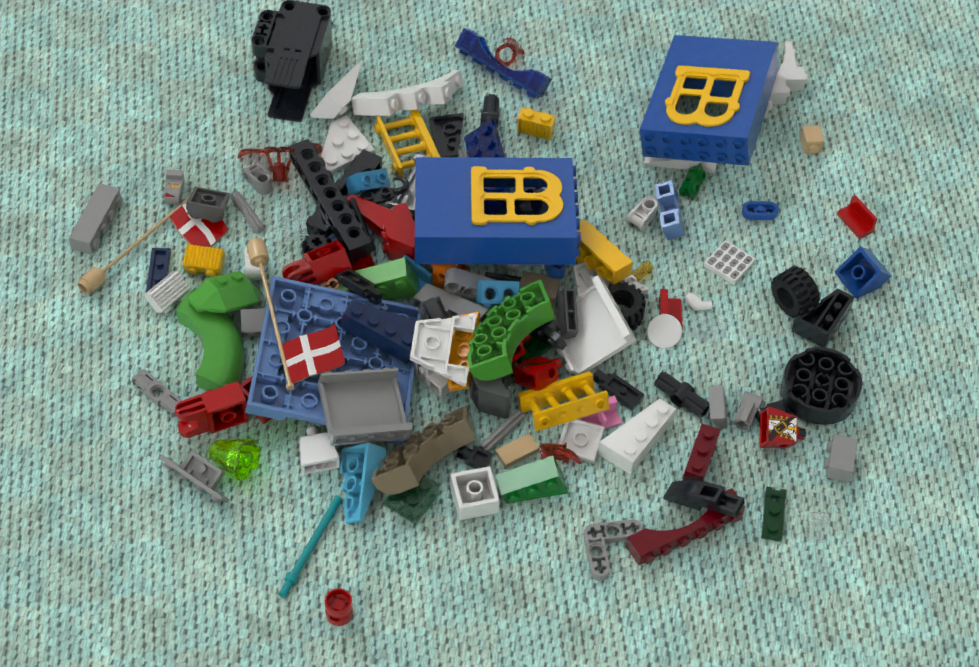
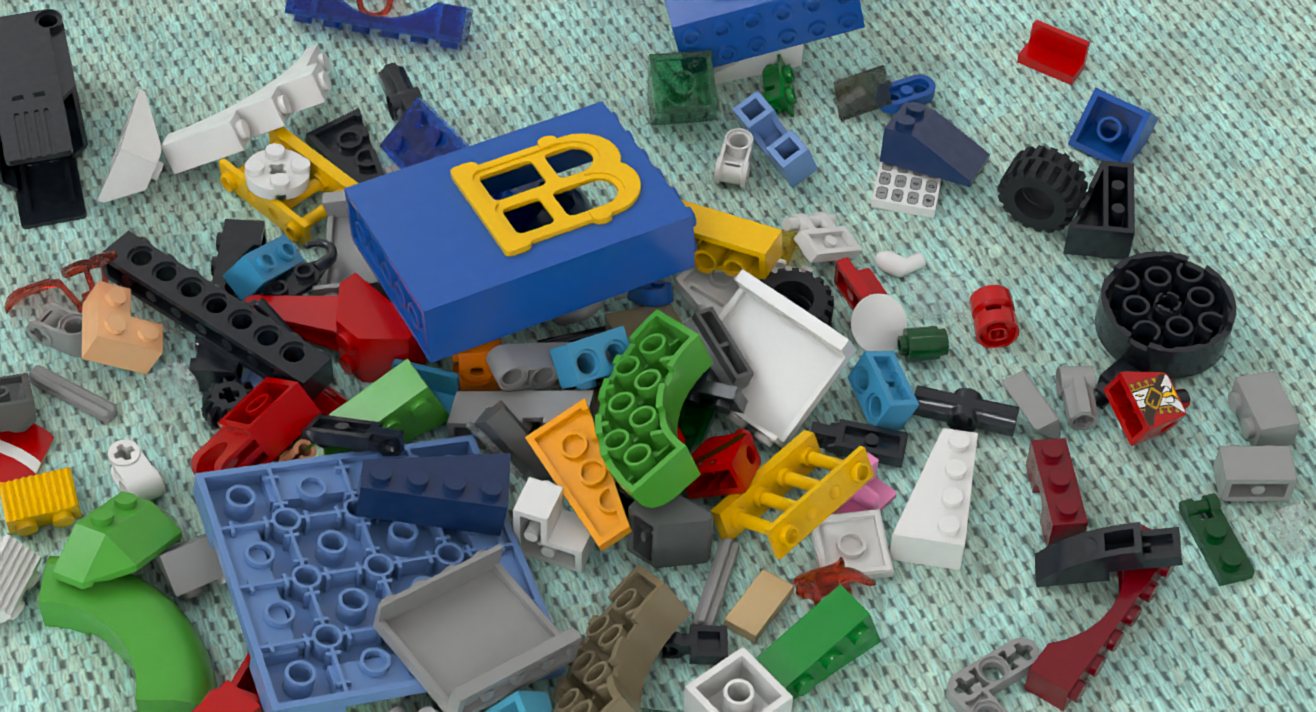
camera: 25 degrees left, 5 degrees down
(278, 191) = (113, 335): none -> light nougat brick
(308, 353) = (325, 584): flag -> none
(343, 144) = (183, 223): white plate -> none
(402, 126) = (290, 171): none -> white plate
(433, 343) = (541, 481): white wing -> none
(536, 123) = (485, 84): yellow brick -> none
(635, 163) = (681, 88): none -> clear green slope
(643, 366) = (883, 390): none -> dark azure brick
(662, 277) = (821, 238): none -> white plate
(682, 350) = (923, 343): none -> dark green brick
(728, 350) = (994, 316): none -> red wheel
(735, 201) = (862, 93): none -> clear smoke piece
(753, 245) = (931, 145): none -> dark blue slope
(813, 488) = (1254, 473): none -> light grey brick

